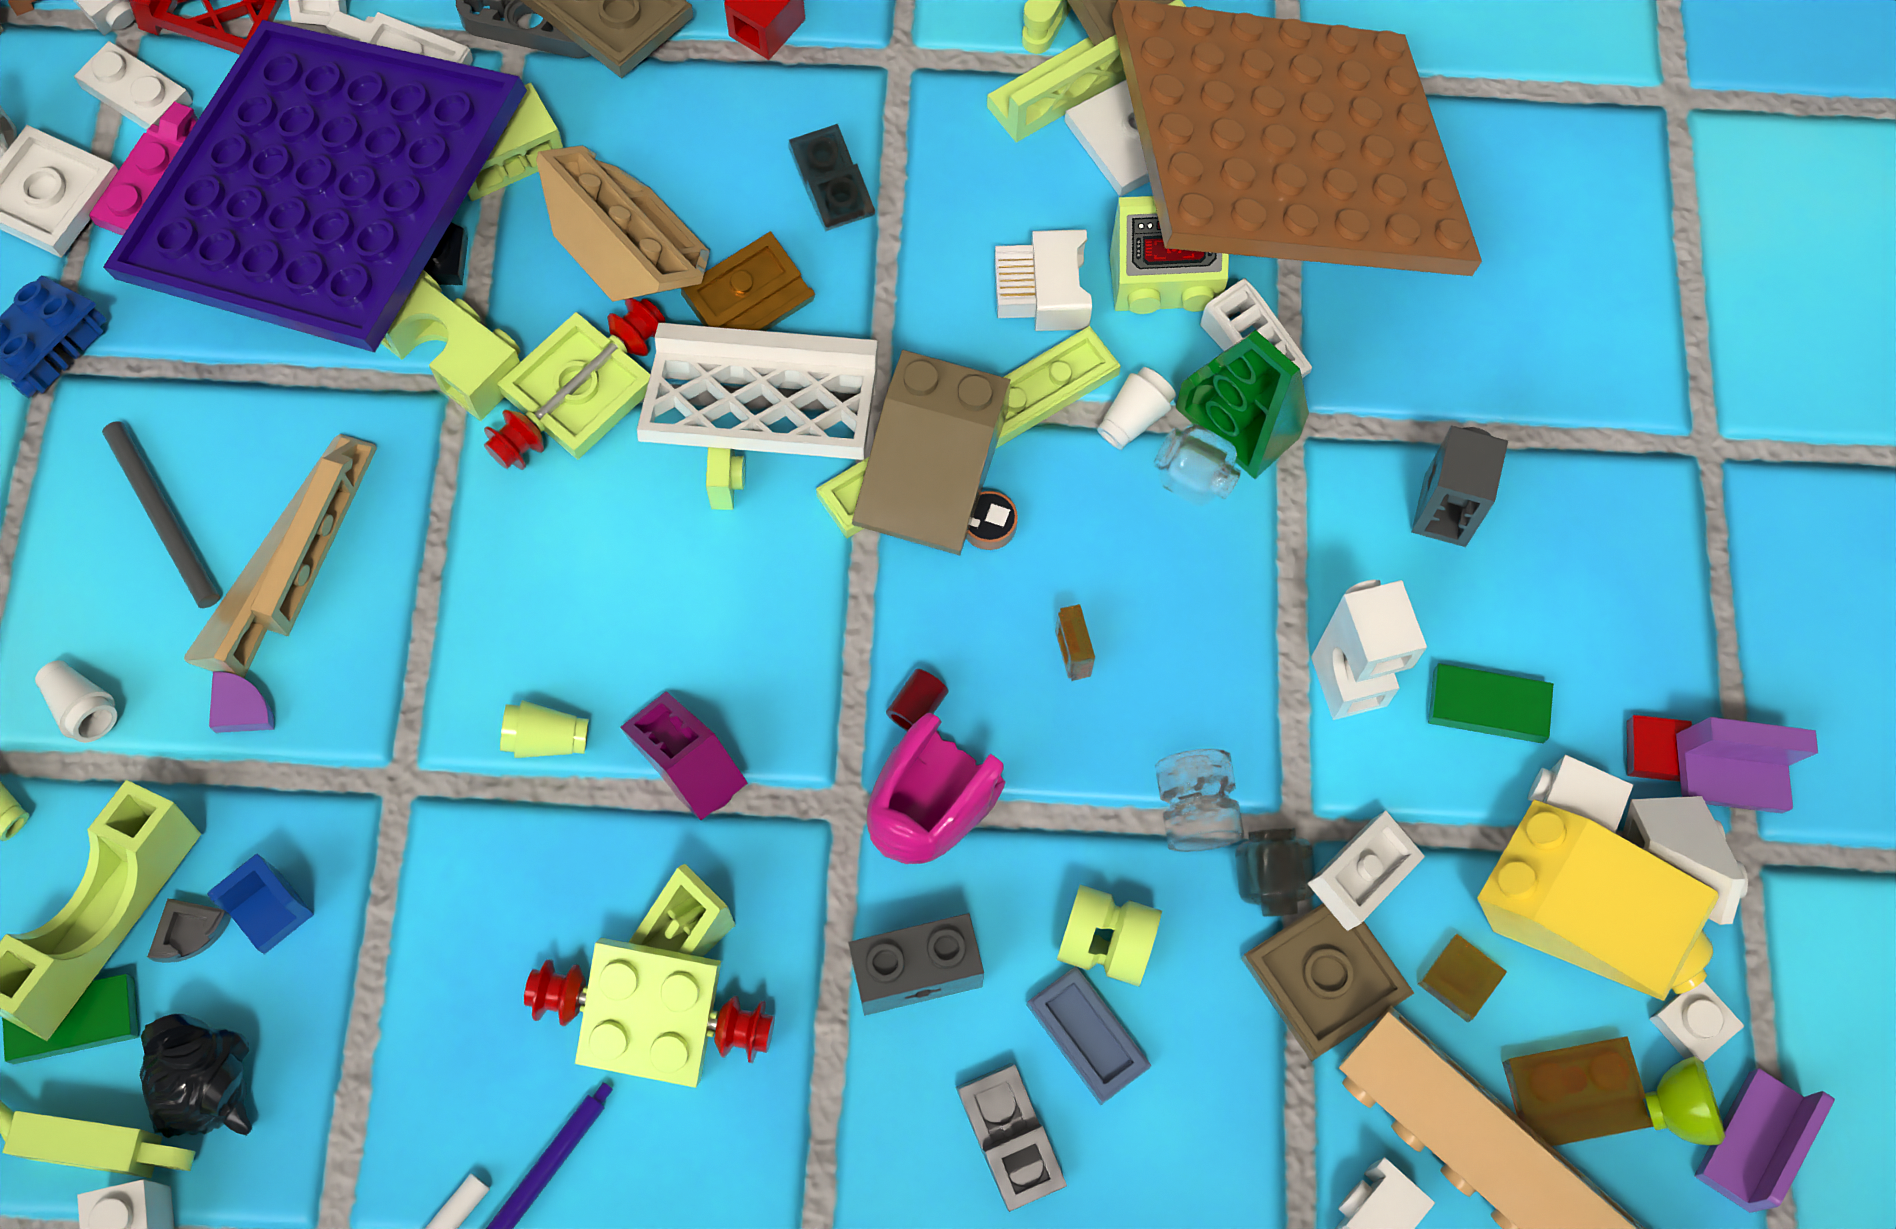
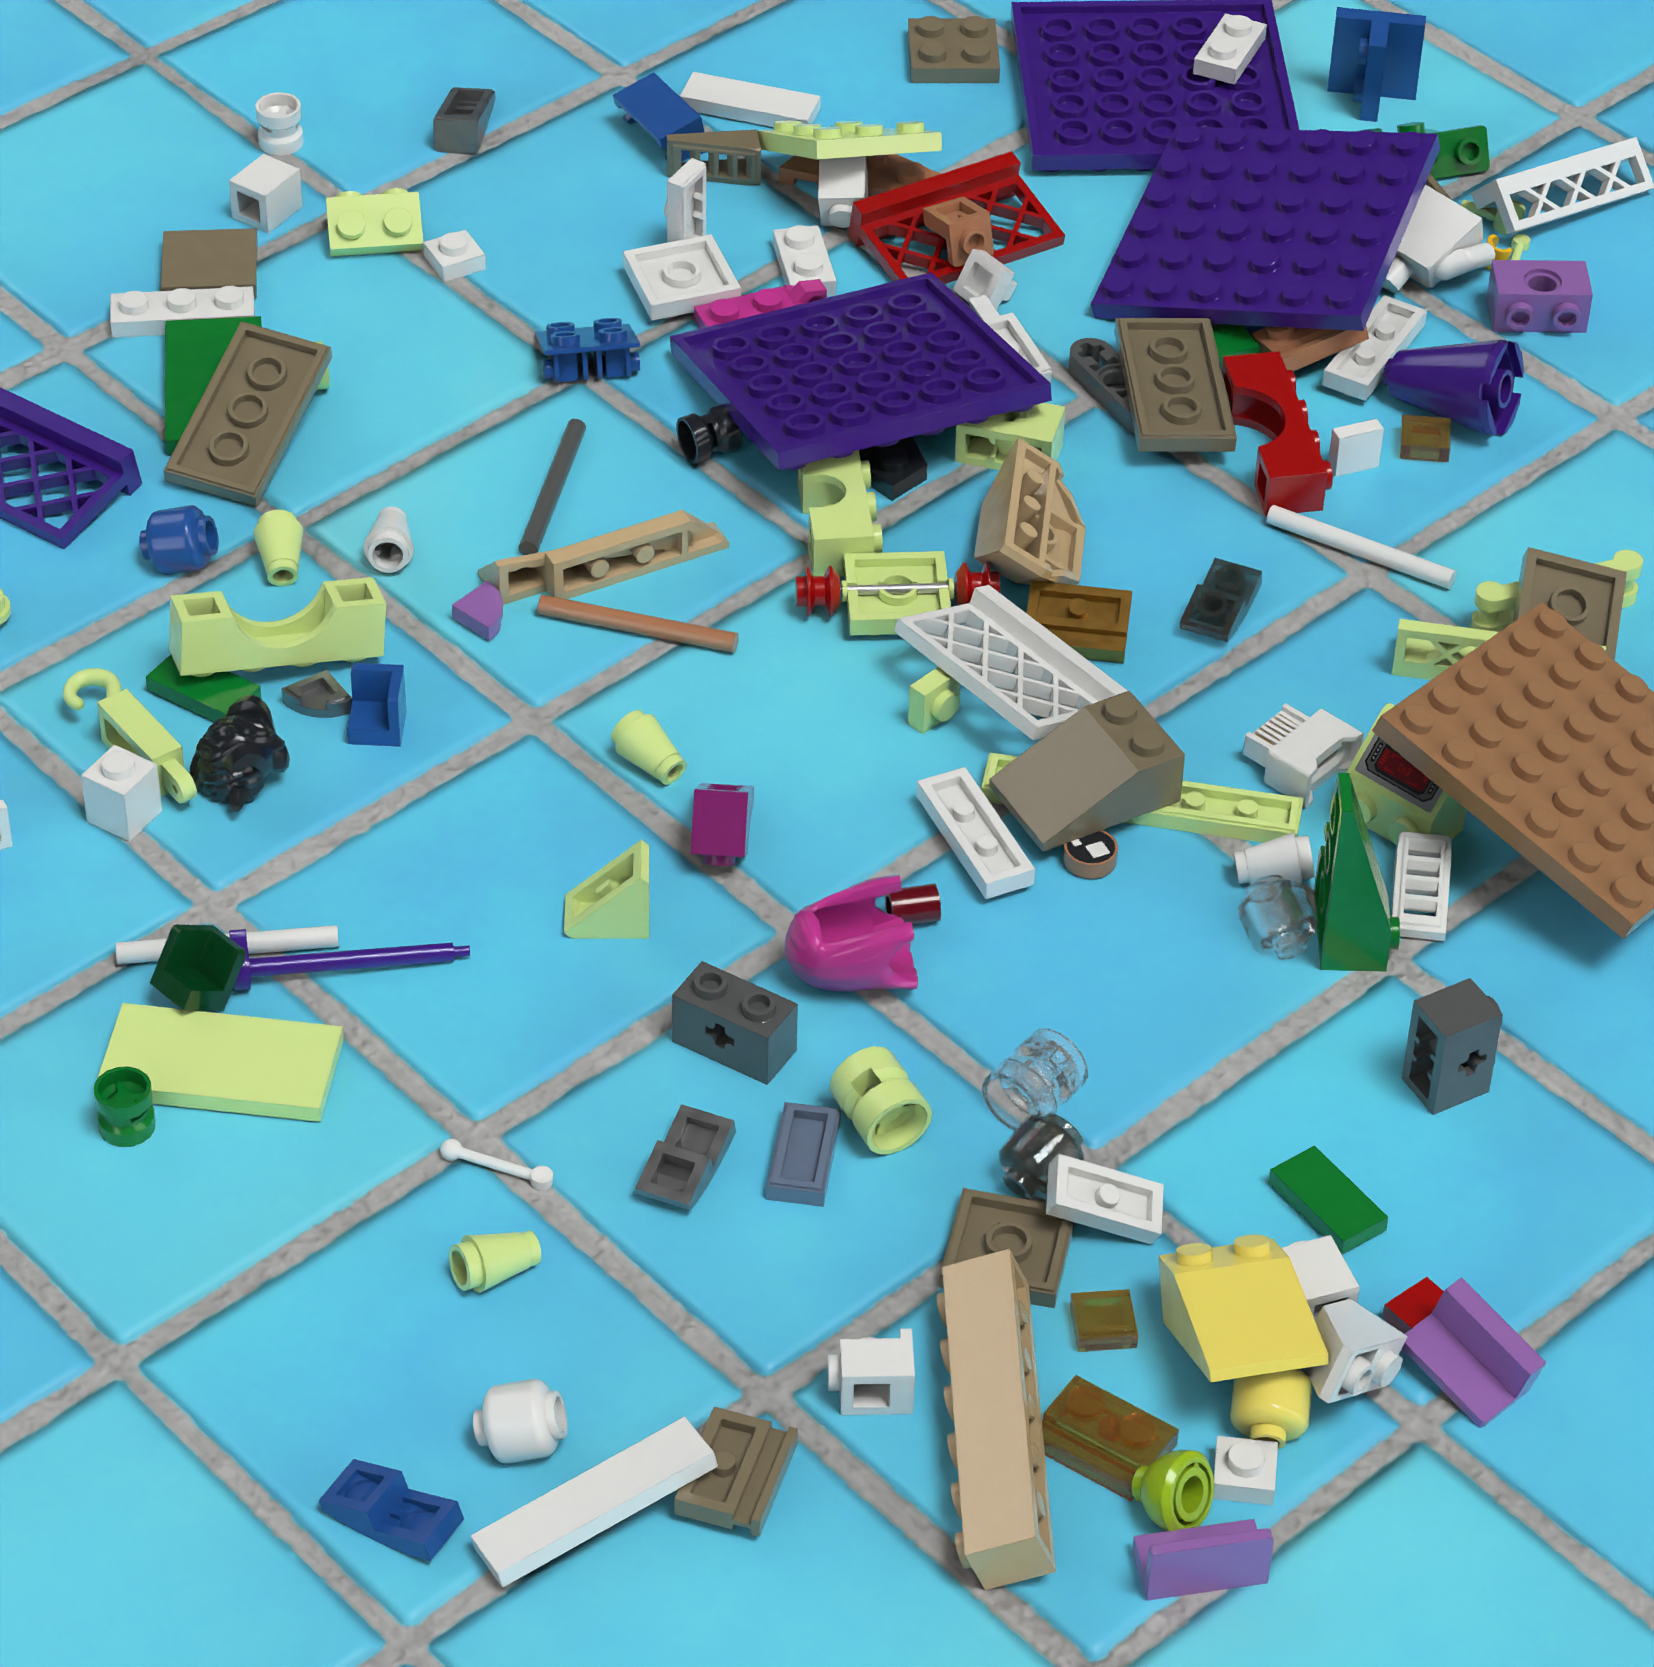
camera: 45 degrees right, 25 degrees down
(246, 347) = (708, 434): none -> black wheel
(386, 601) = (638, 623): none -> nougat bar
(648, 1011) = (539, 923): yellowish green plate -> none
(874, 35) = (1361, 547): none -> white bar
(889, 582) = (975, 833): none -> white plate
(1074, 642) = (1060, 947): clear orange tile -> none
(1365, 646) = (1253, 1041): white arch -> none

